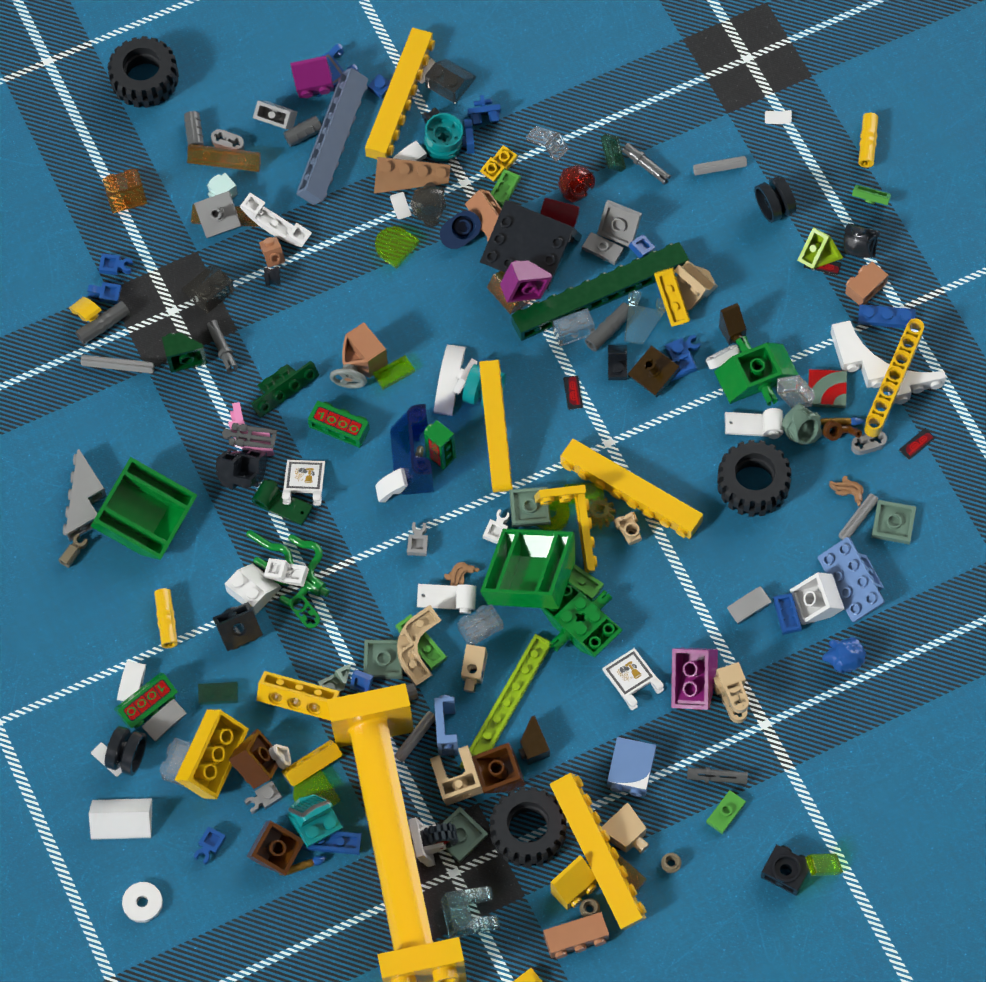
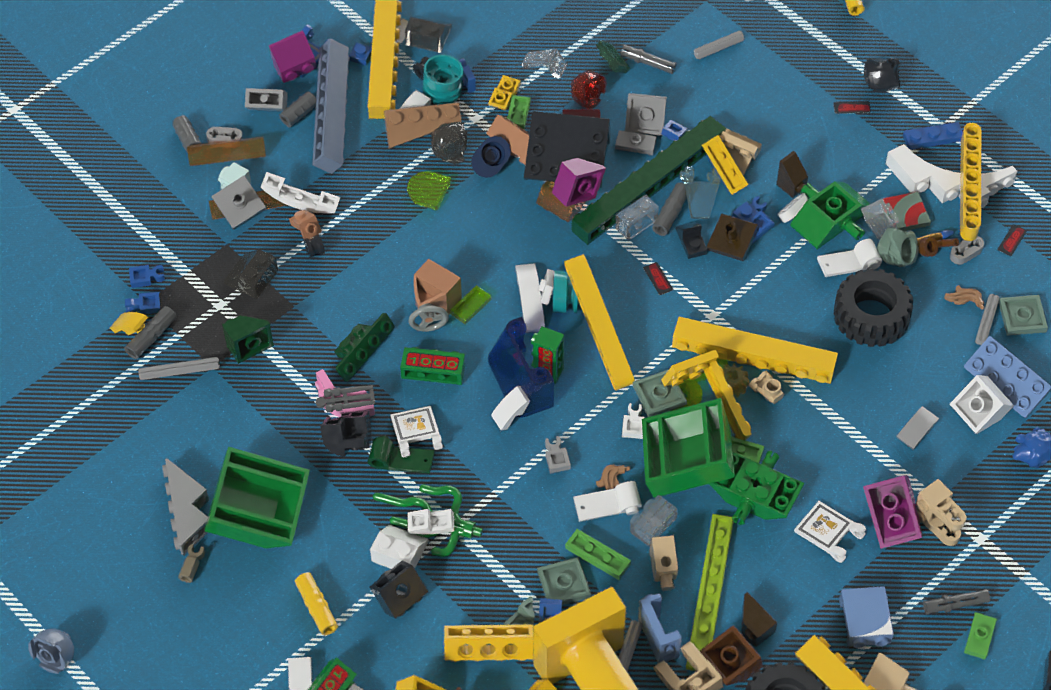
camera: 20 degrees left, 10 degrees down
(124, 190) = (134, 205): clear orange bracket -> none
(143, 52) = (111, 76): black tyre -> none
(218, 693) = (399, 665): clear green plate -> none
(225, 353) = (289, 328): dark grey pin -> none
(311, 612) = (472, 554): green beam -> none
(400, 205) = (420, 153): white sticker -> none
(408, 644) = (586, 554): tan plate -> none
(491, 110) = (471, 47): blue hips -> none
(775, 199) = (787, 57): black wheel -> none
(787, 613) = (958, 426): blue plate -> none
(819, 250) = (845, 92): lime slope -> none
(866, 283) = (902, 111): nougat brick -> none
(871, 195) = (873, 36): bright green plate -> none

